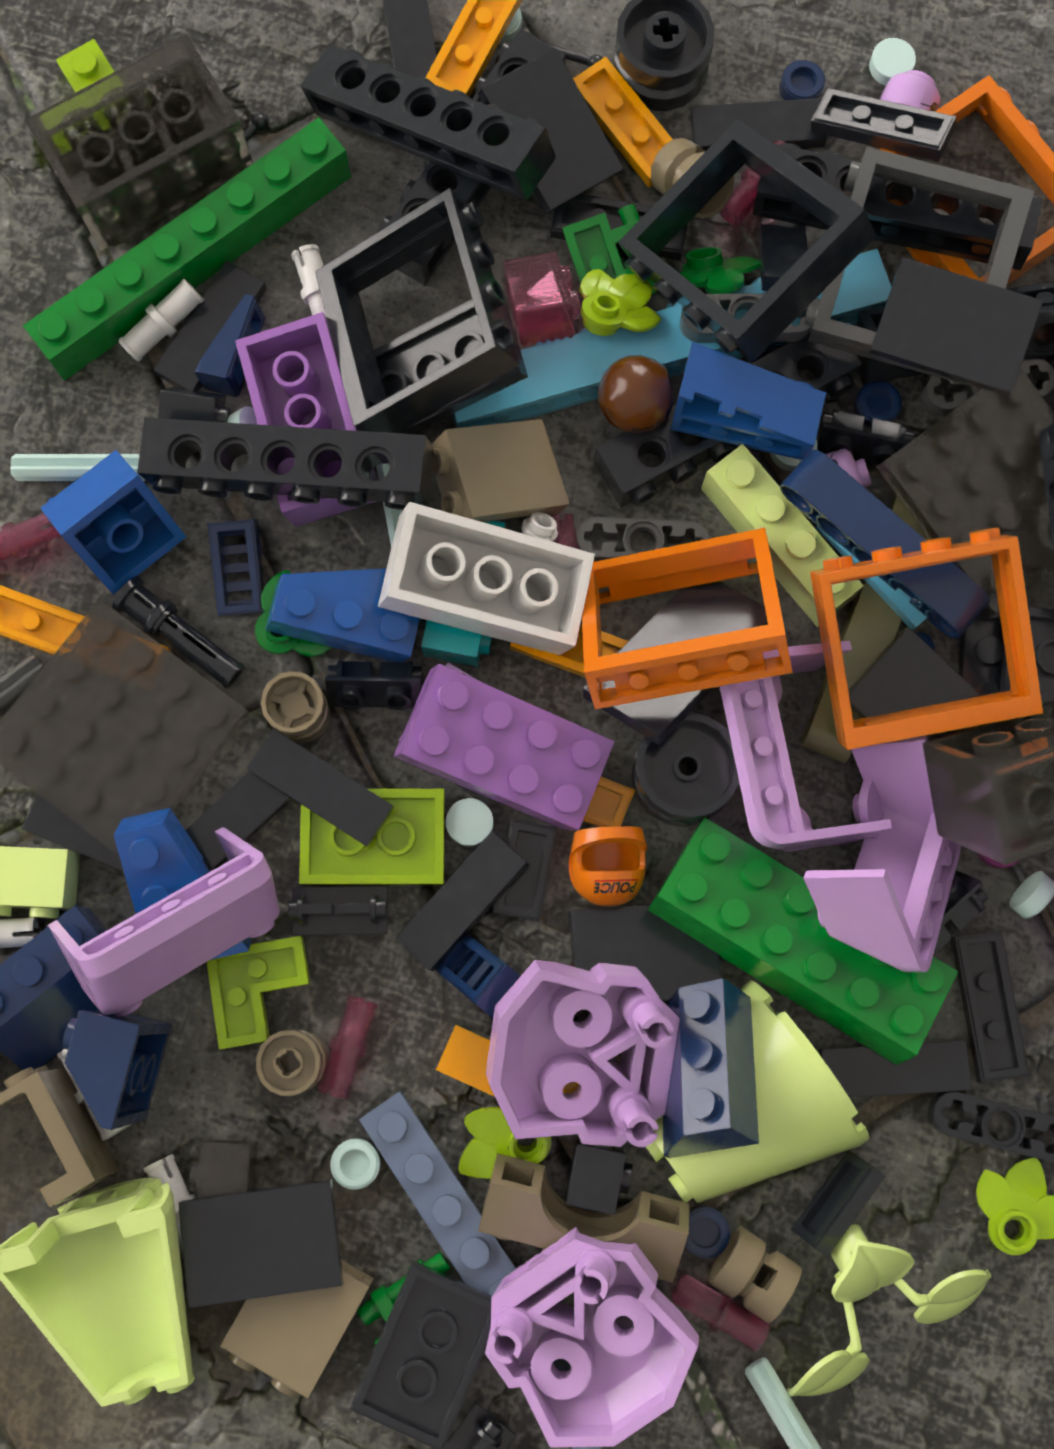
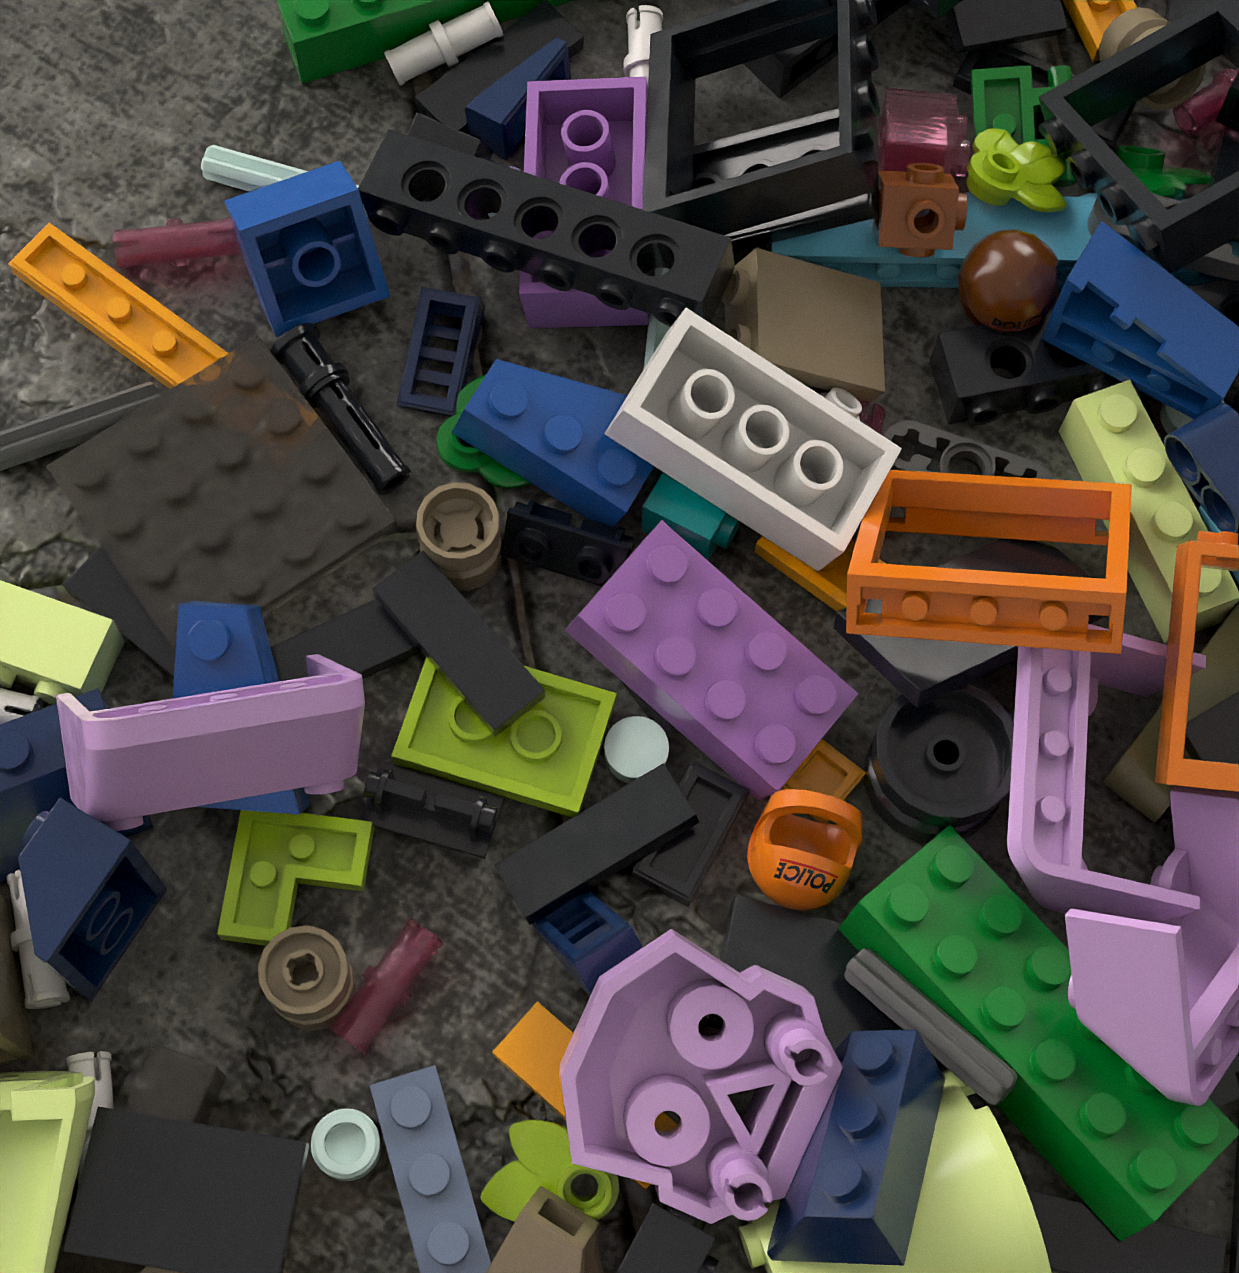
camera: 15 degrees right, 10 degrees down
(555, 360) = (919, 210): none -> dark orange brick
(730, 964) = (940, 1032): none -> dark grey axle

